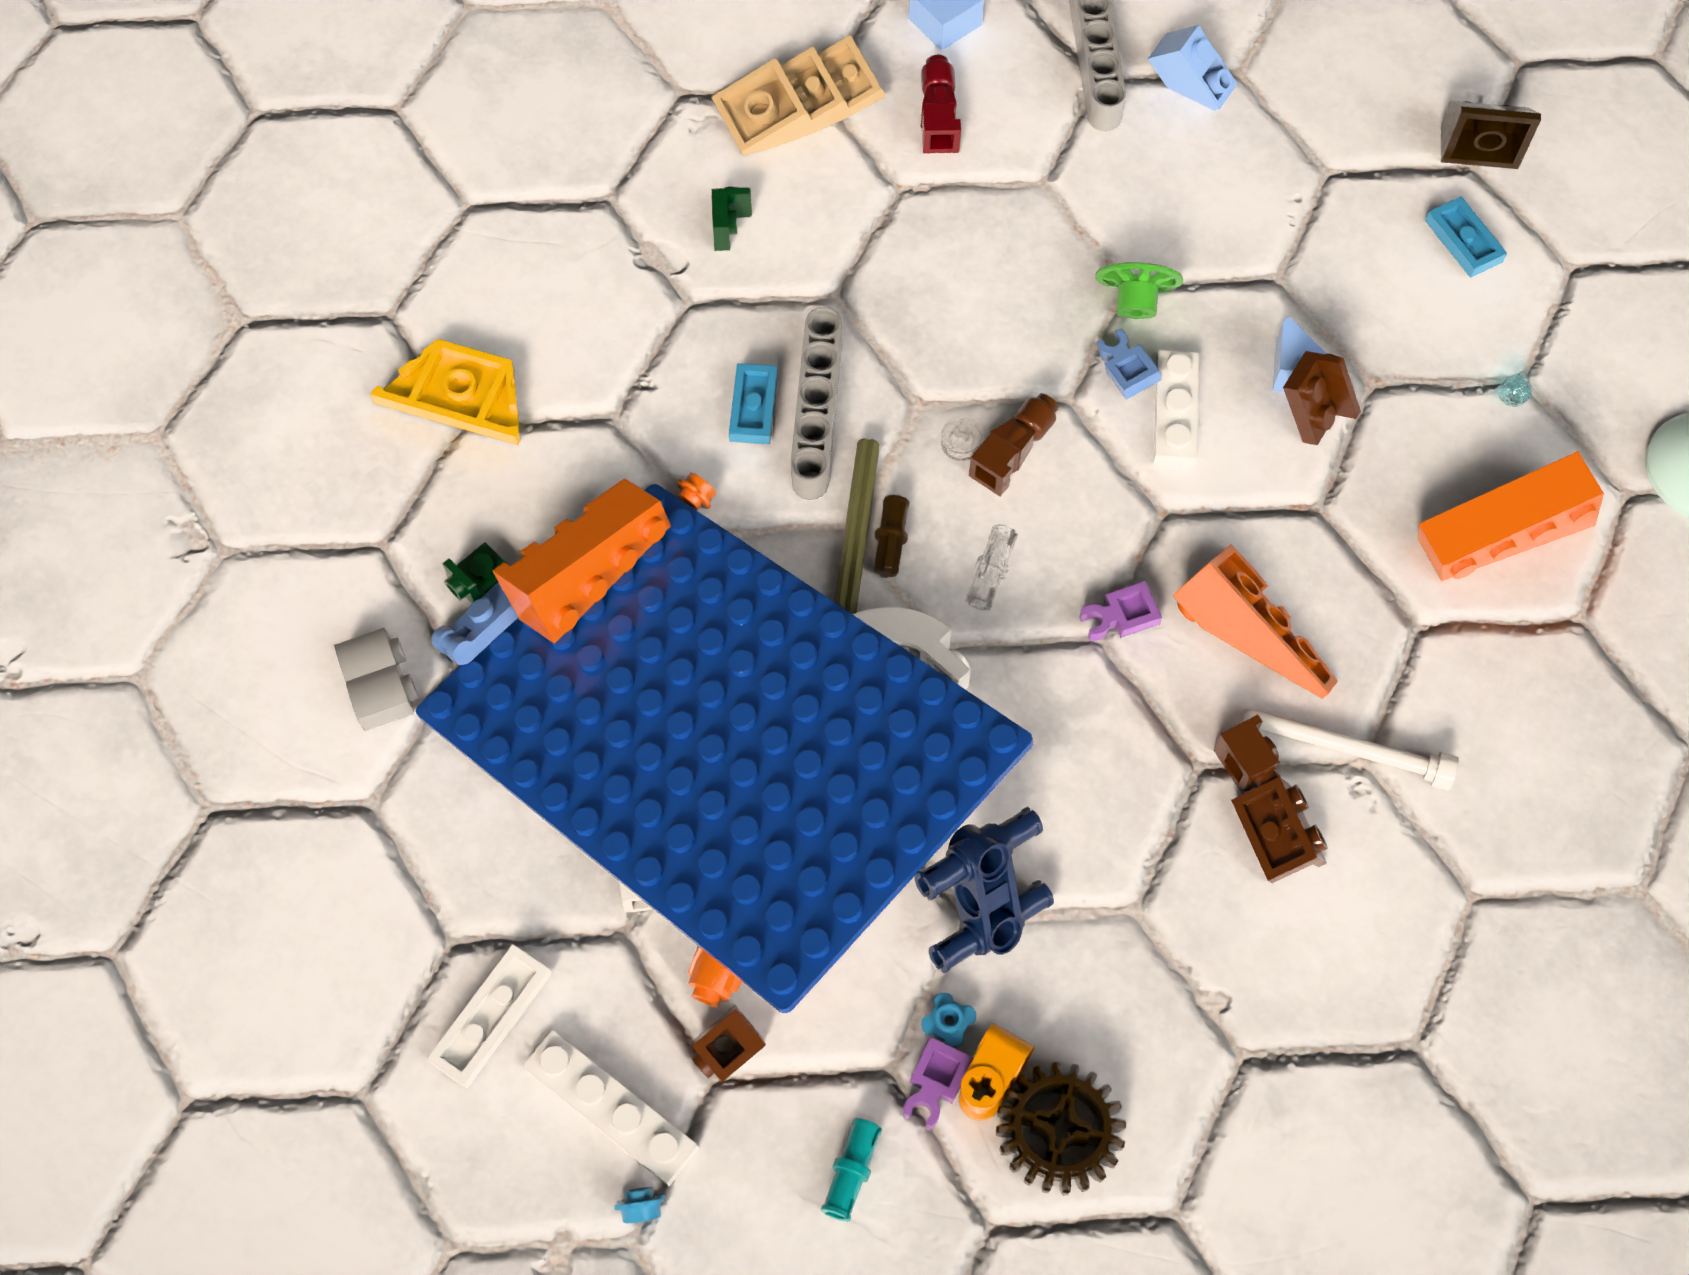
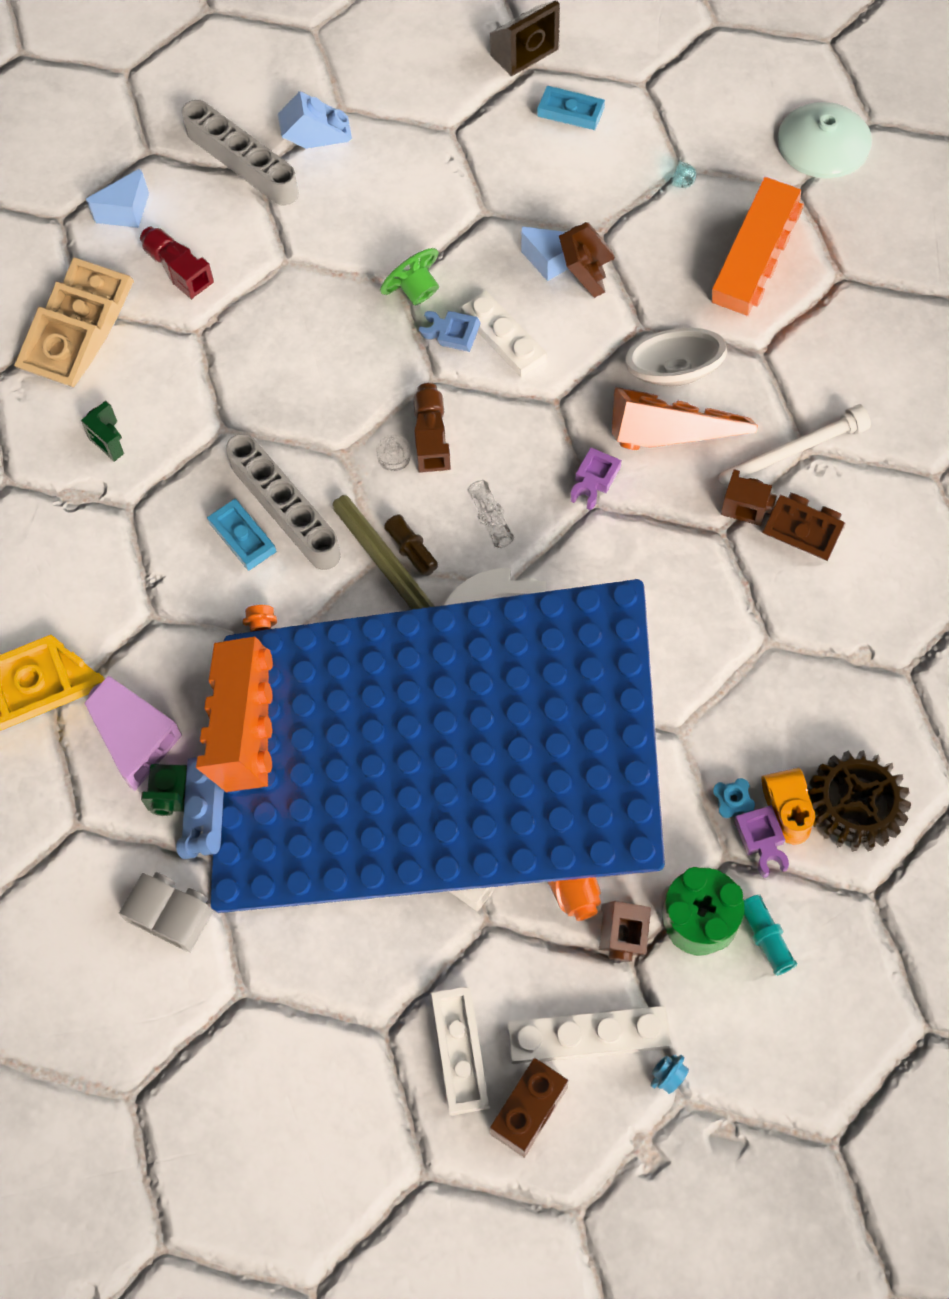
camera: 40 degrees left, 0 degrees up
(492, 1118) = (529, 1107): none -> reddish brown brick
(493, 498) = (131, 729): none -> lavender slope
(791, 1111) = (705, 889): none -> green brick
(985, 889) = (689, 699): dark blue piece -> none
(1315, 560) = (676, 356): none -> white dish

